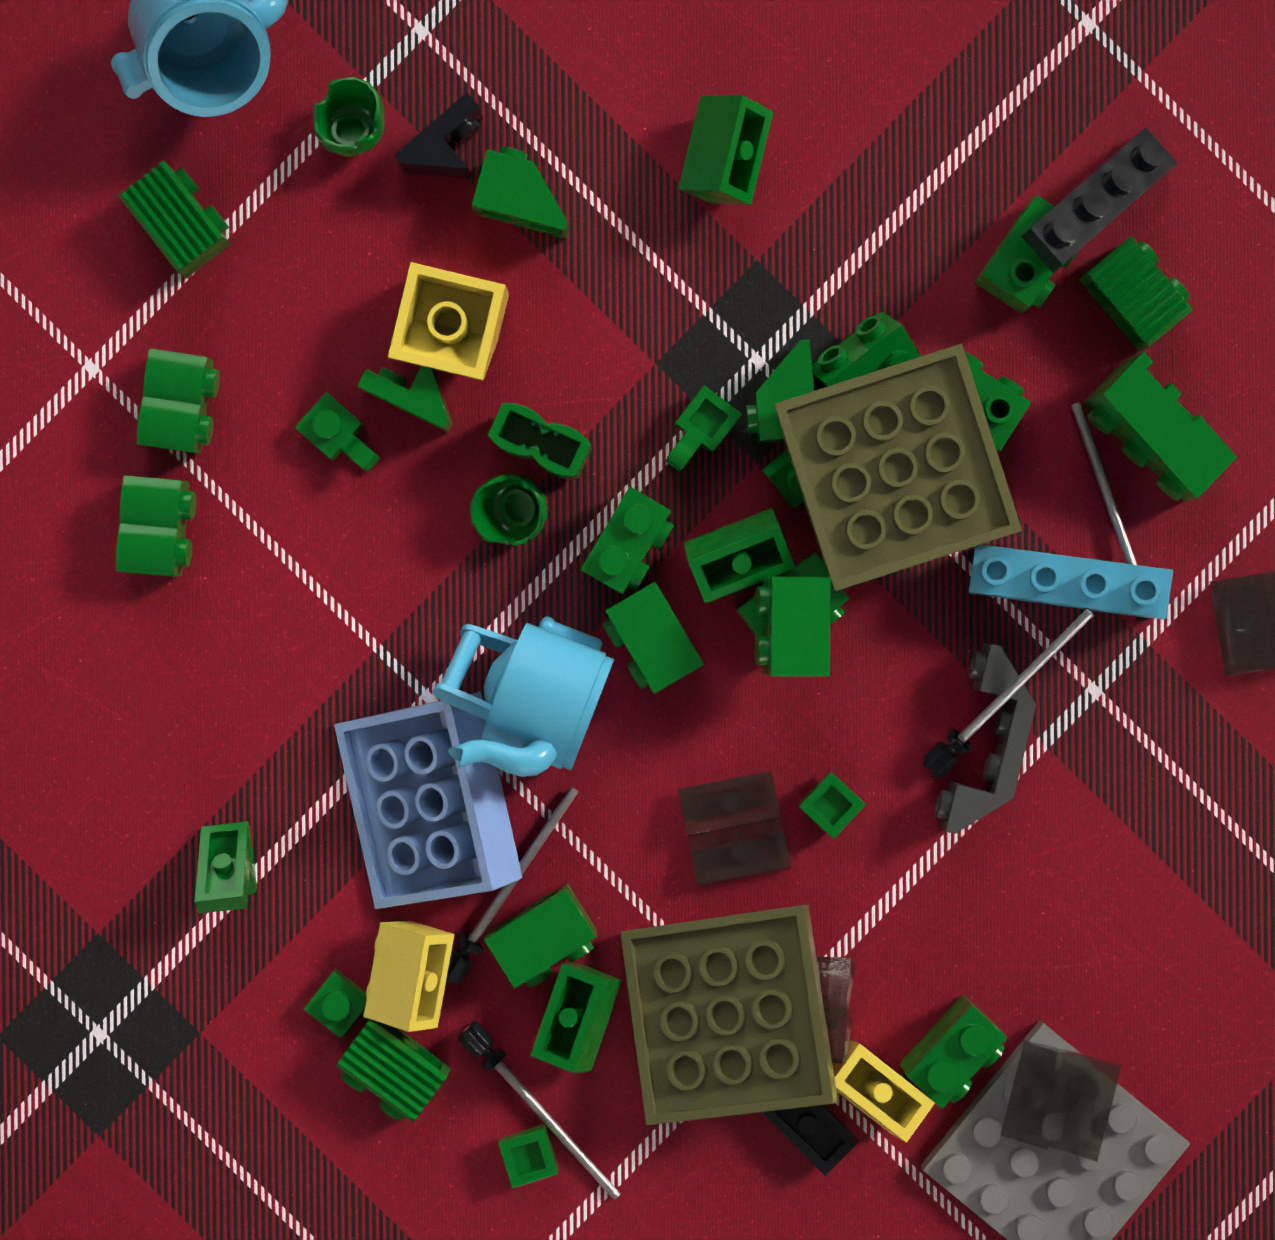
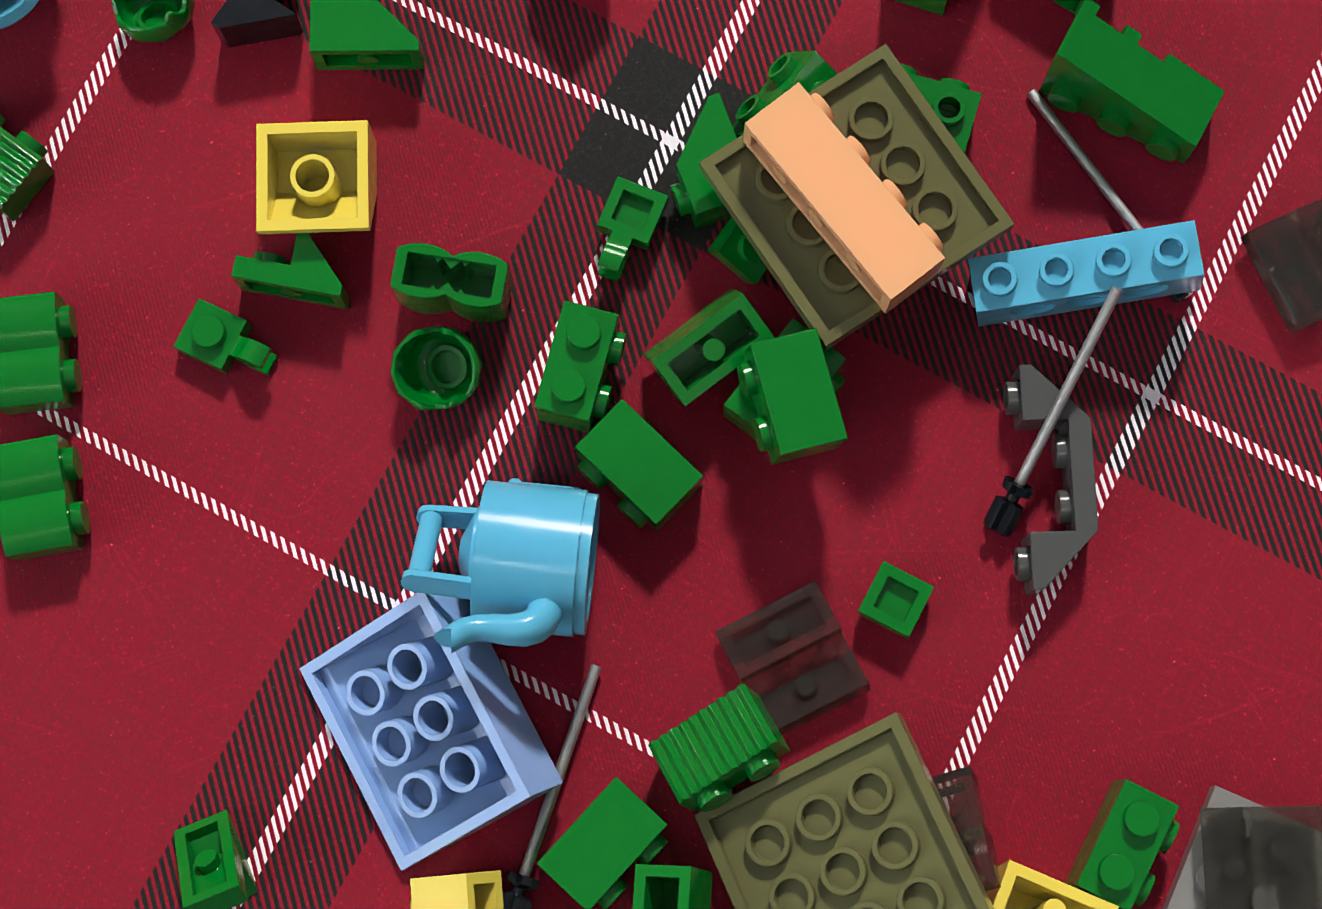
camera: 15 degrees left, 10 degrees down
(654, 889) = (719, 749): none -> green brick
(885, 473) = (844, 197): none -> light nougat brick

